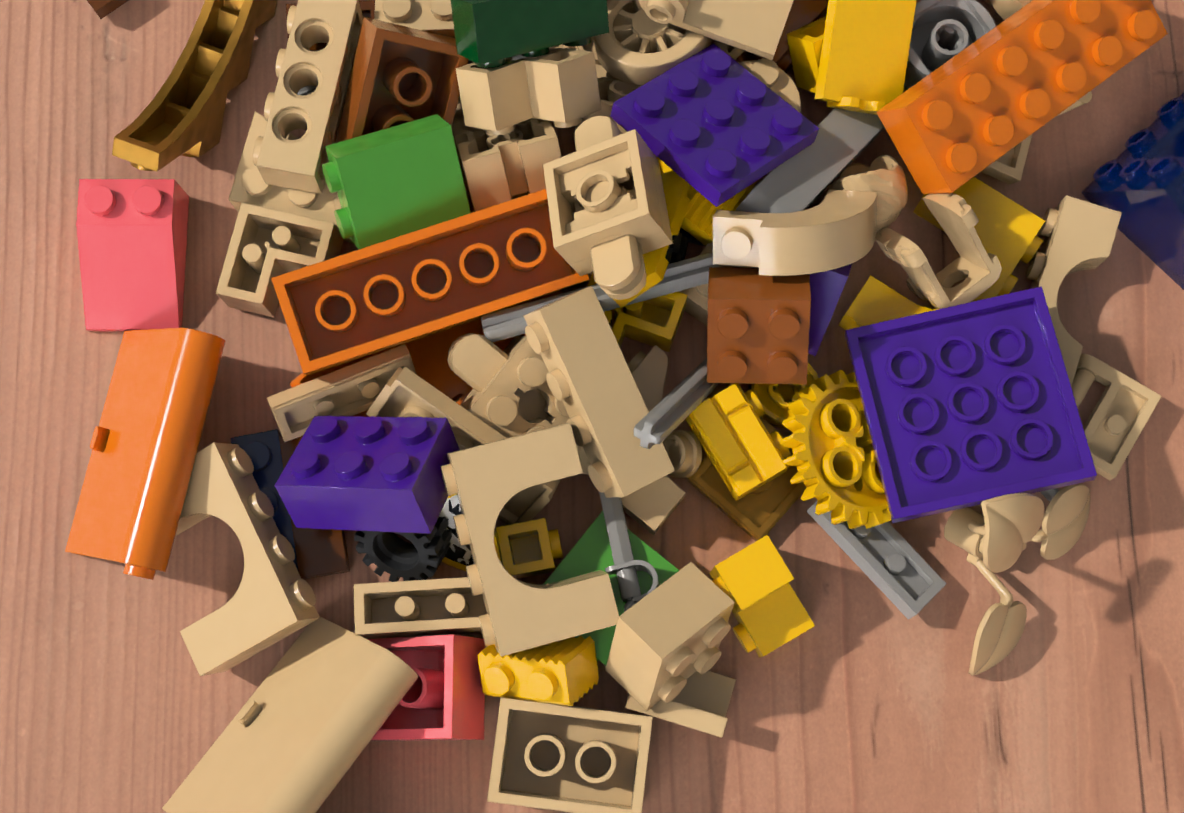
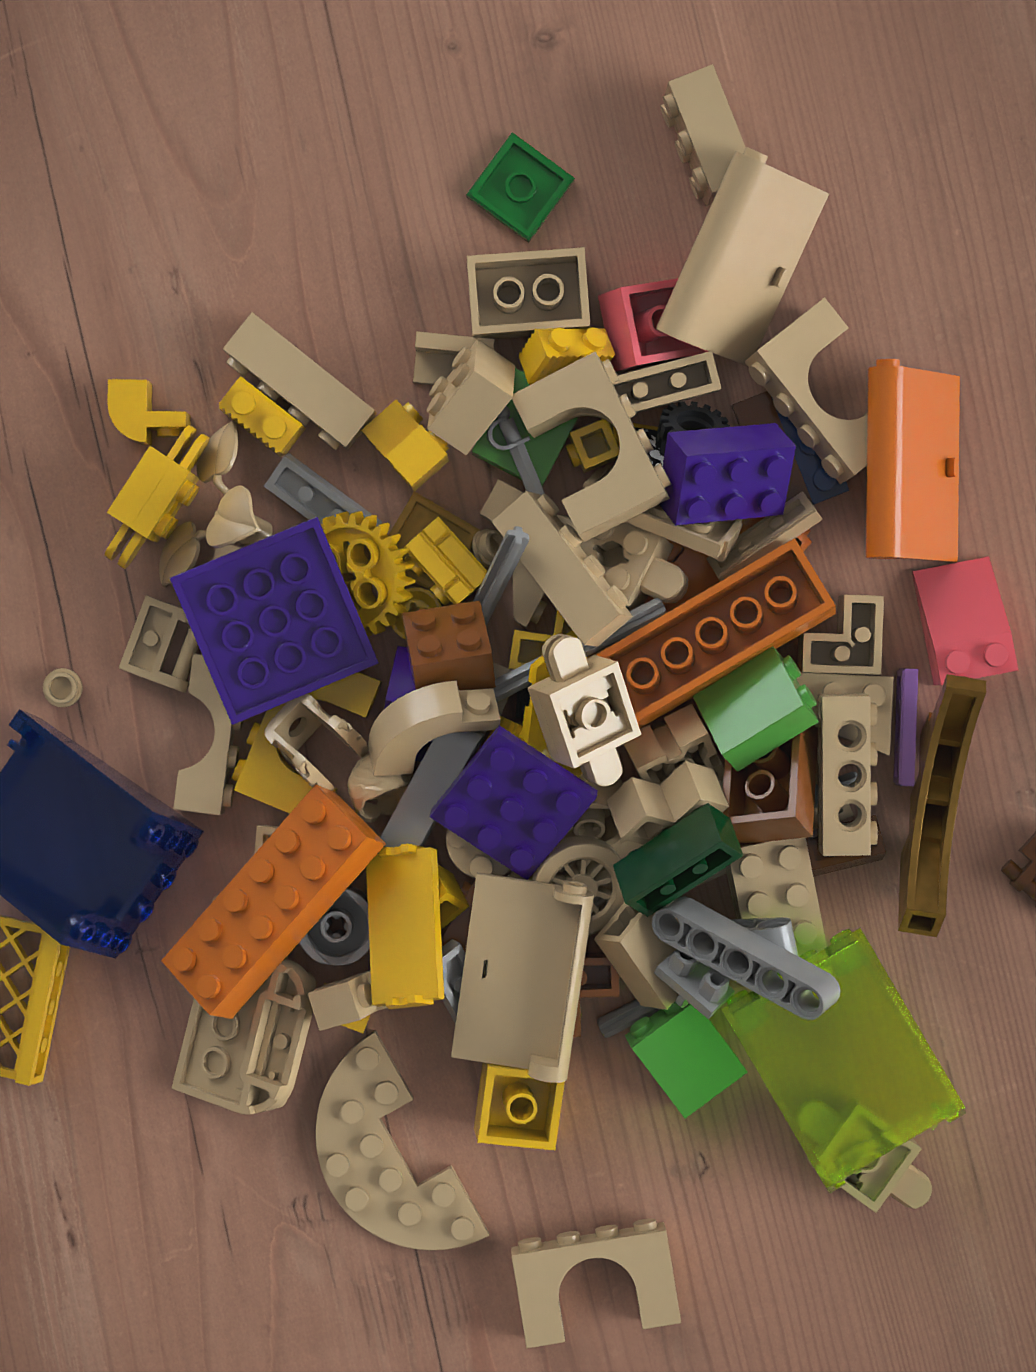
camera: 170 degrees right, 10 degrees up
(234, 129) = (905, 727): none -> medium lavender tile
(882, 705) = (299, 381): none -> tan brick
(936, 670) = (261, 417): none -> yellow brick
(1090, 595) = (155, 496): none -> yellow brick
(1099, 706) = (132, 413): none -> yellow brick

